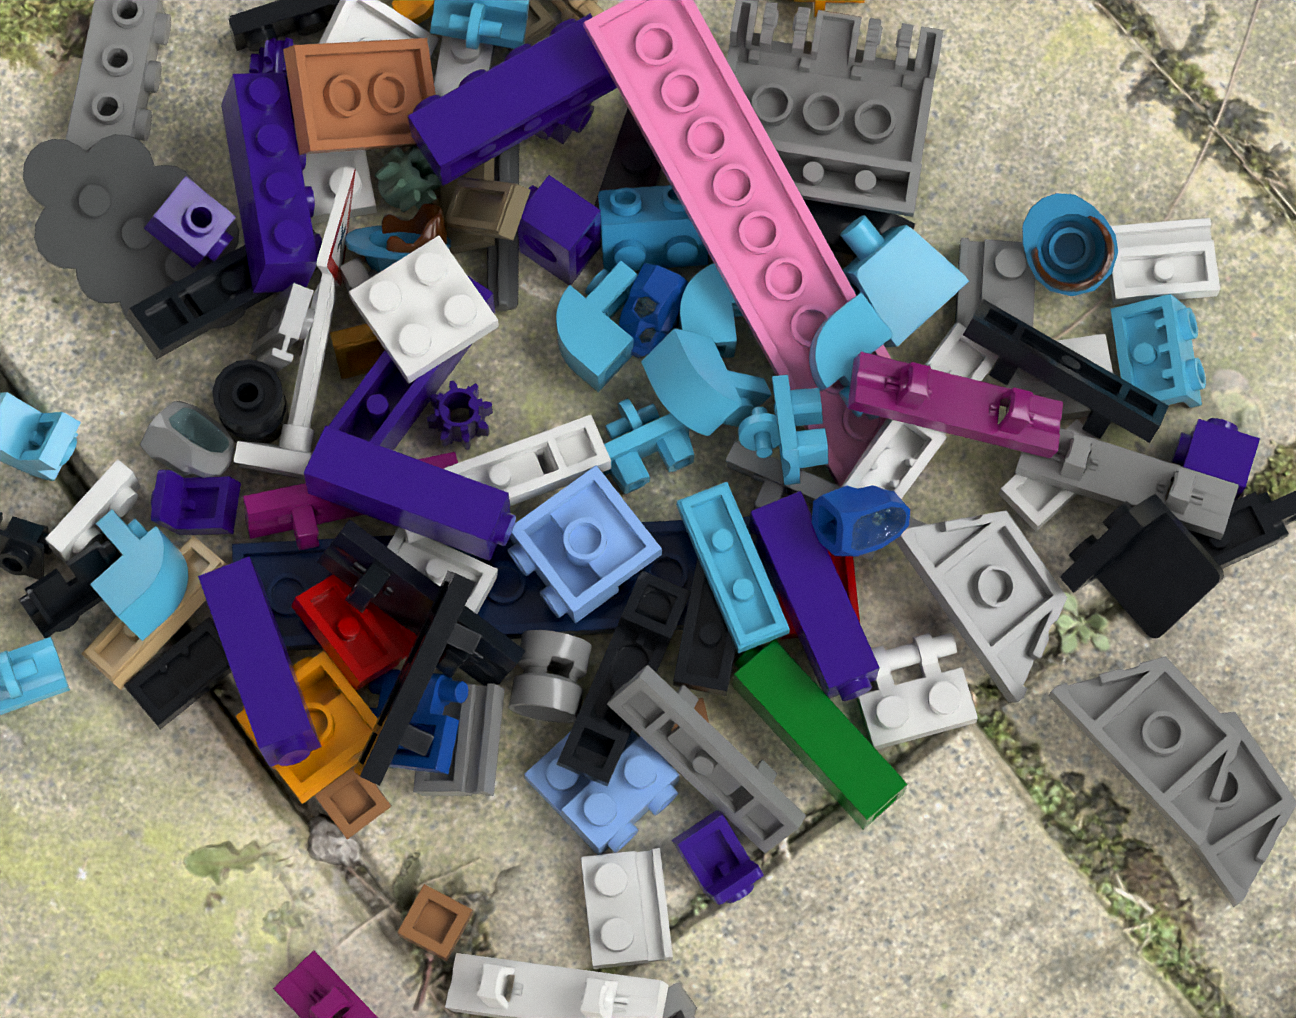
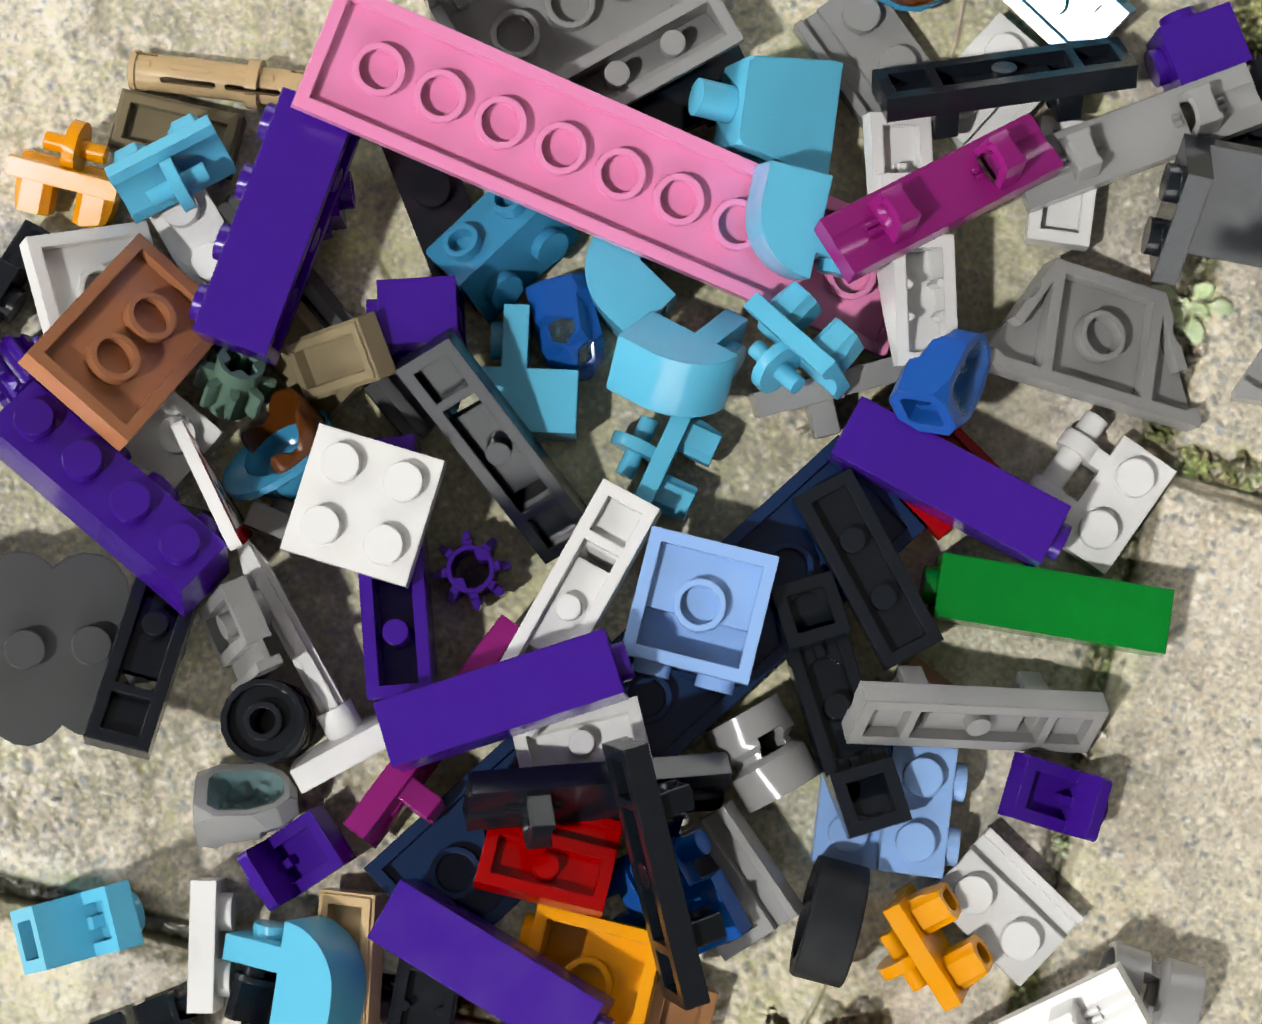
camera: 35 degrees left, 10 degrees up
(192, 224) = (71, 601): brick -> none
(356, 350) = (324, 589): pearl gold tile -> none
(501, 813) = (830, 922): none -> black tyre
(540, 334) = (493, 442): none -> black hinge
(549, 888) = (922, 950): none -> light orange hips
(732, 567) = (856, 518): medium azure tile -> none

